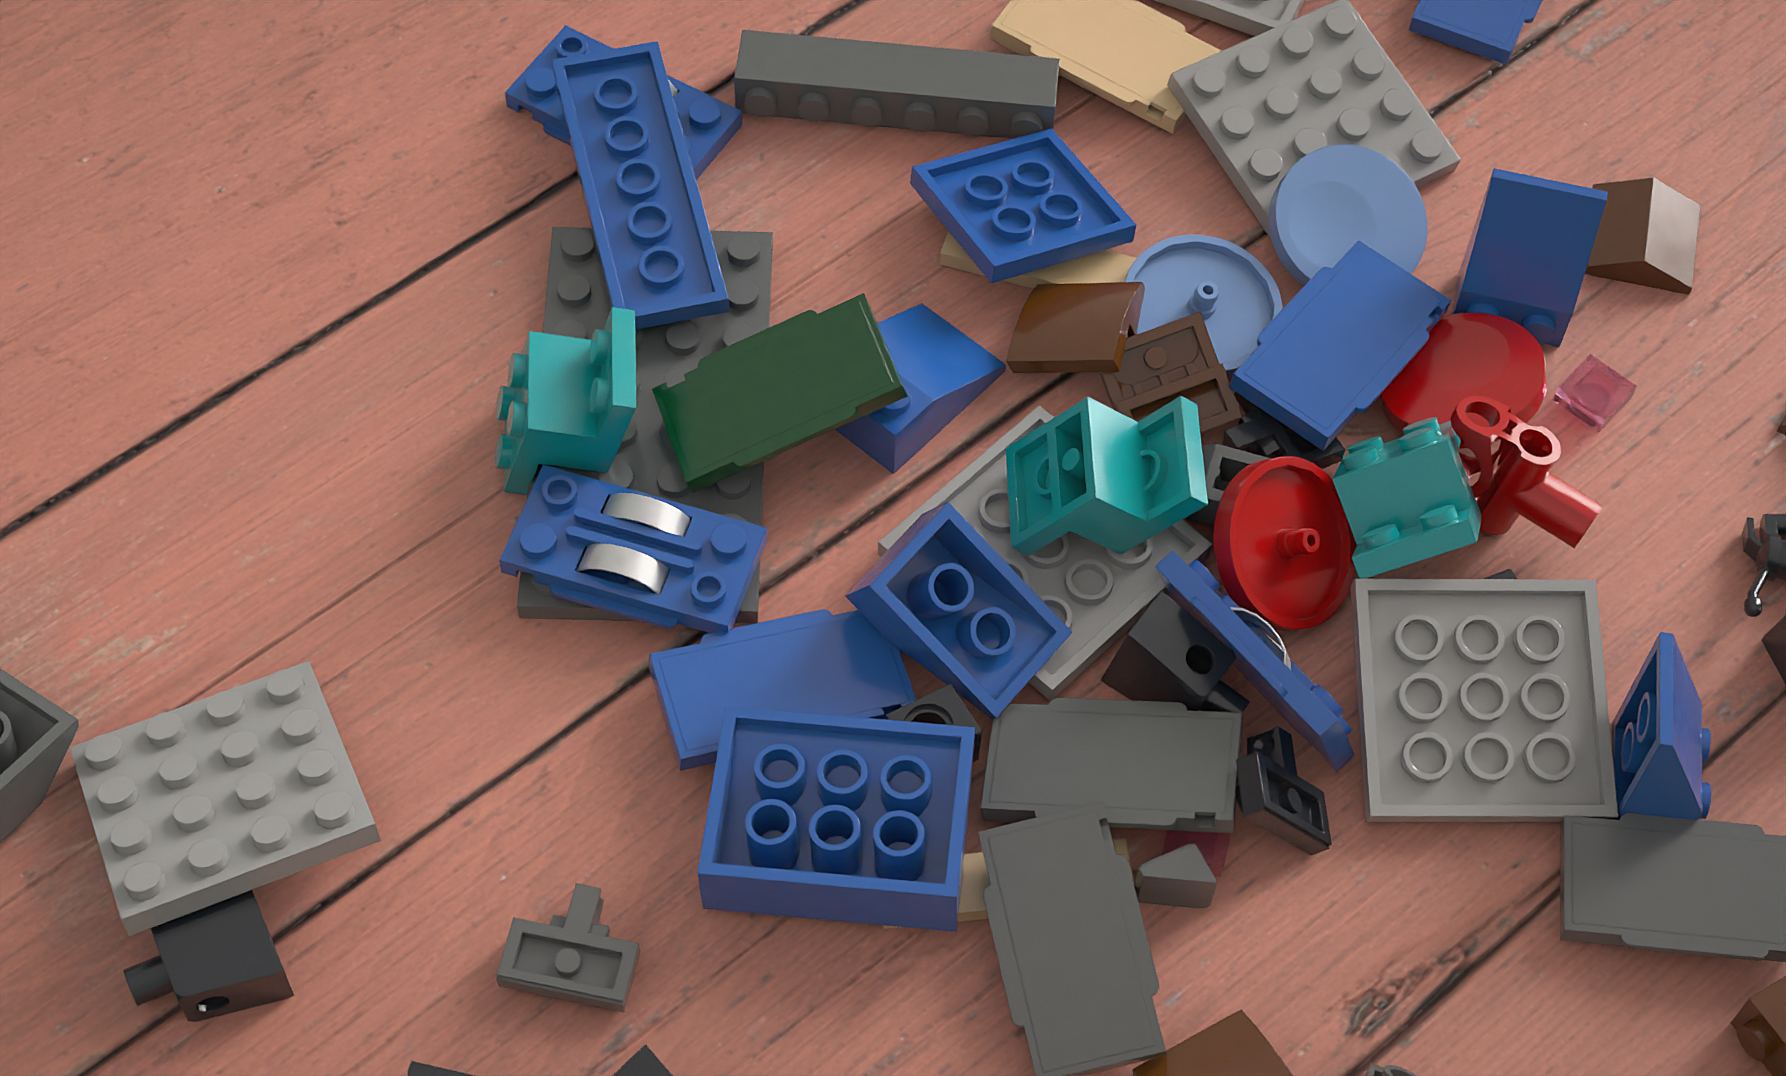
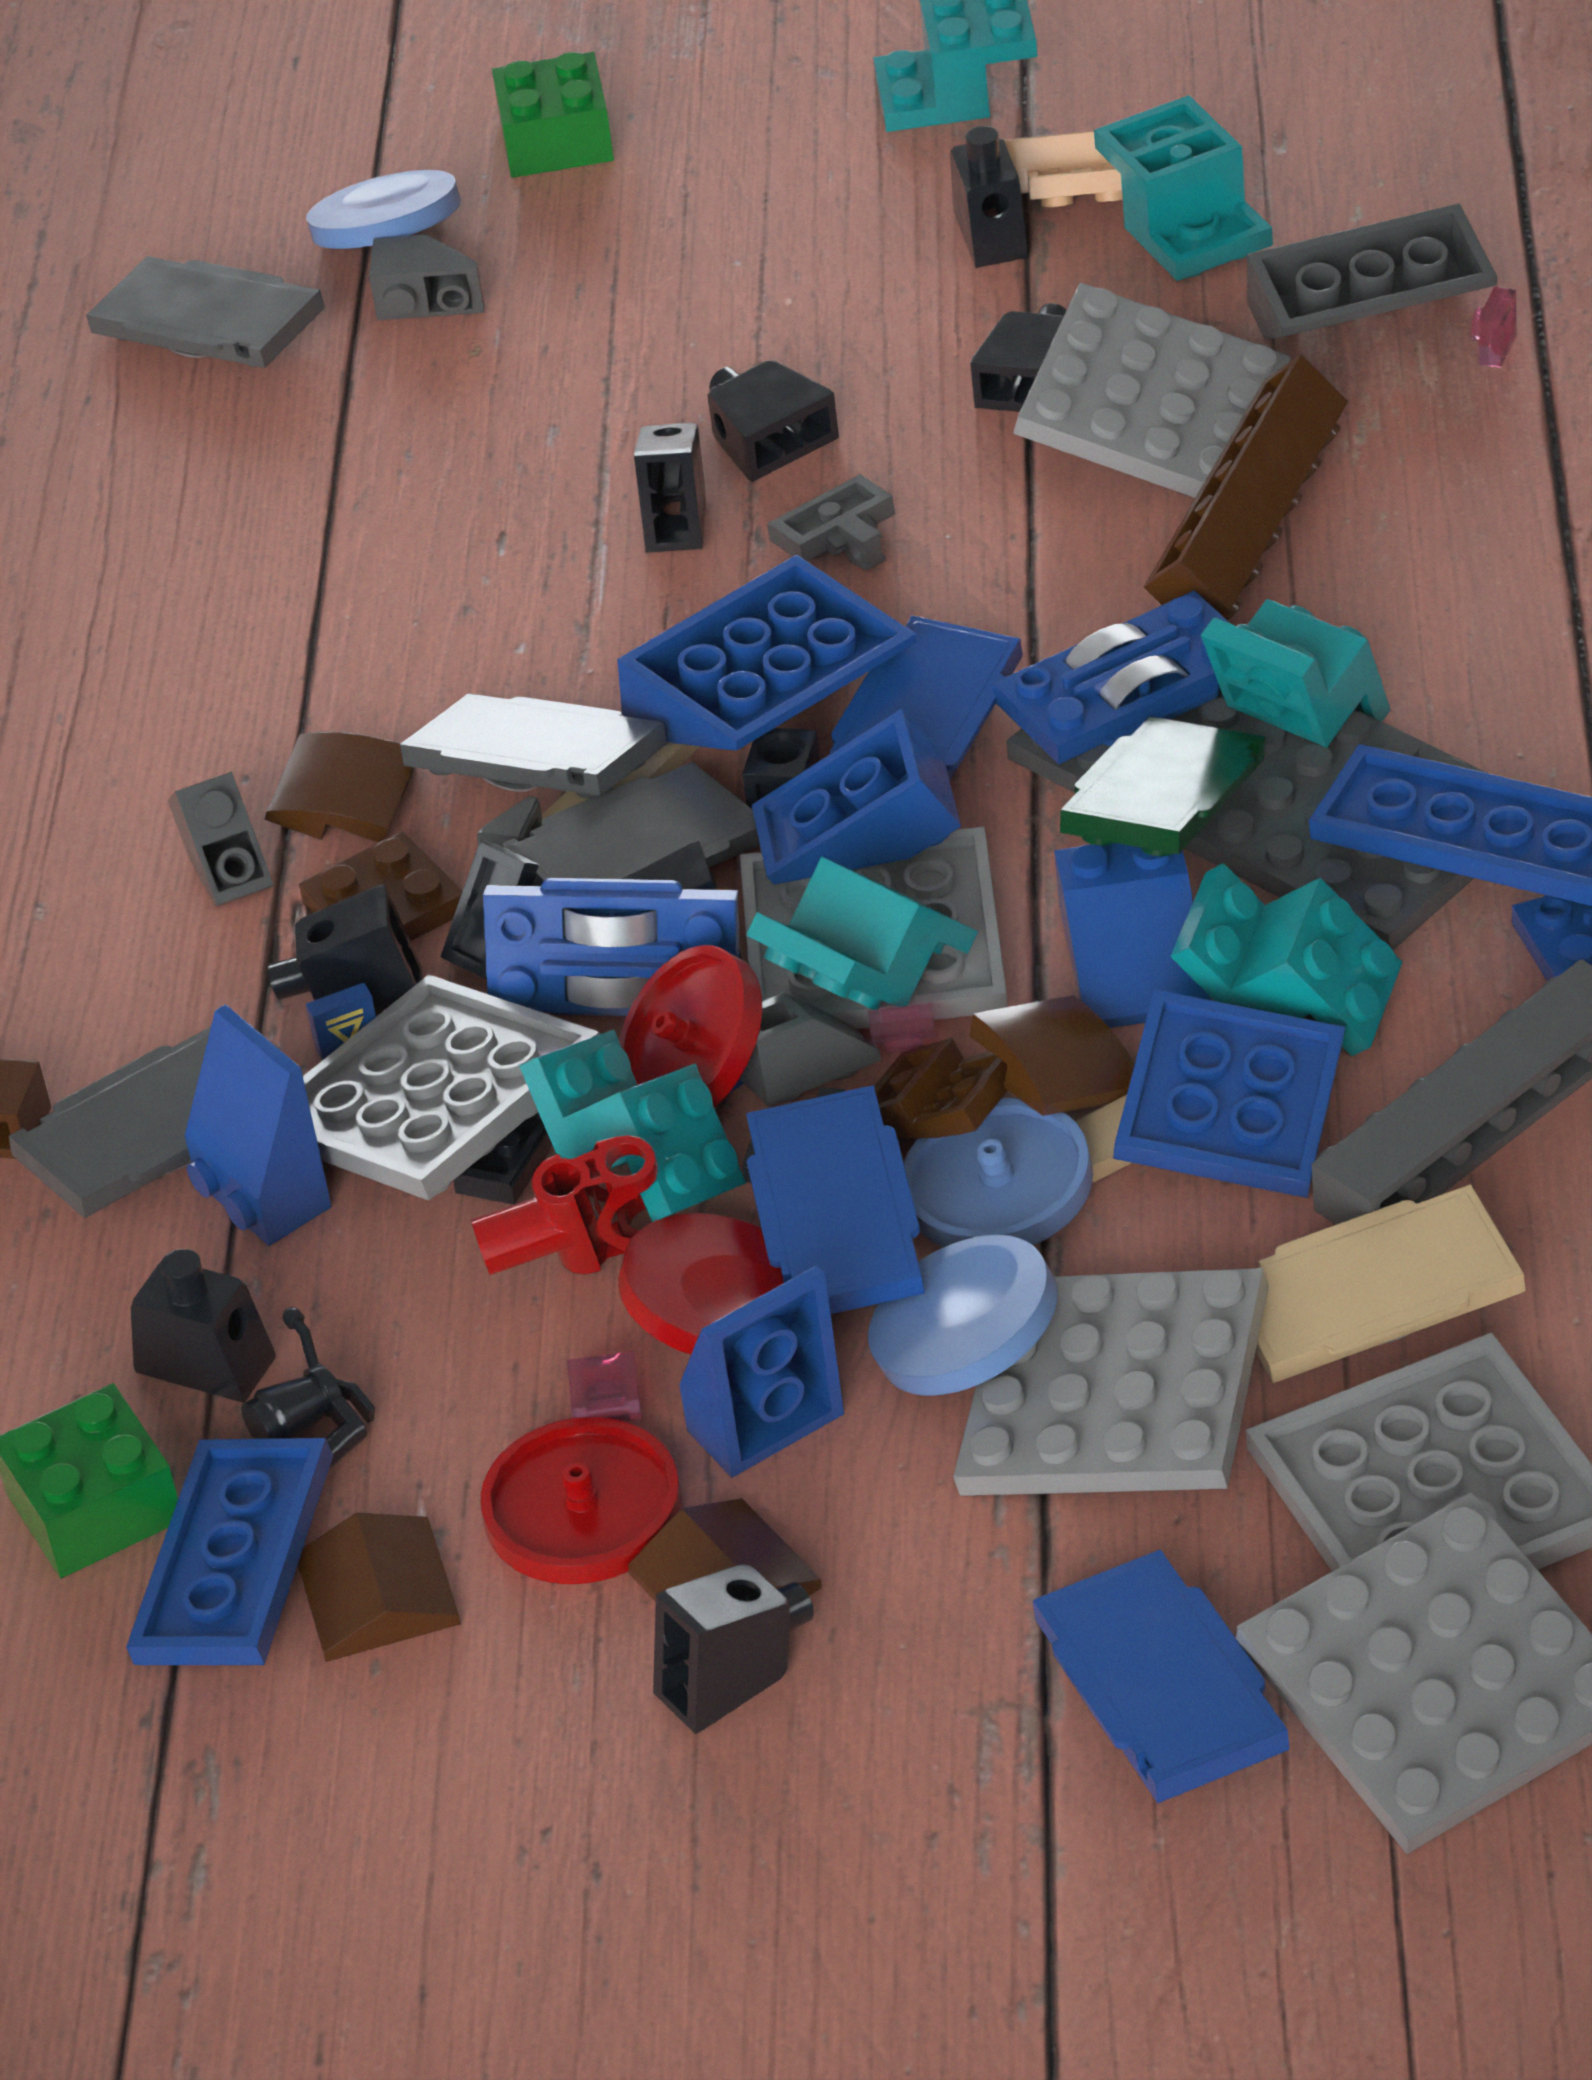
camera: 140 degrees right, 15 degrees down
(320, 624) = (1250, 489): none -> reddish brown brick
(871, 240) = (1288, 955): none -> teal bracket
(1308, 954) = (415, 883): none -> reddish brown plate
(1424, 868) = (350, 946): none -> black torso
(1471, 839) = (339, 1017): none -> blue tile
(1681, 349) = (578, 1499): none -> red piece
(1709, 159) = (723, 1641): none -> black torso

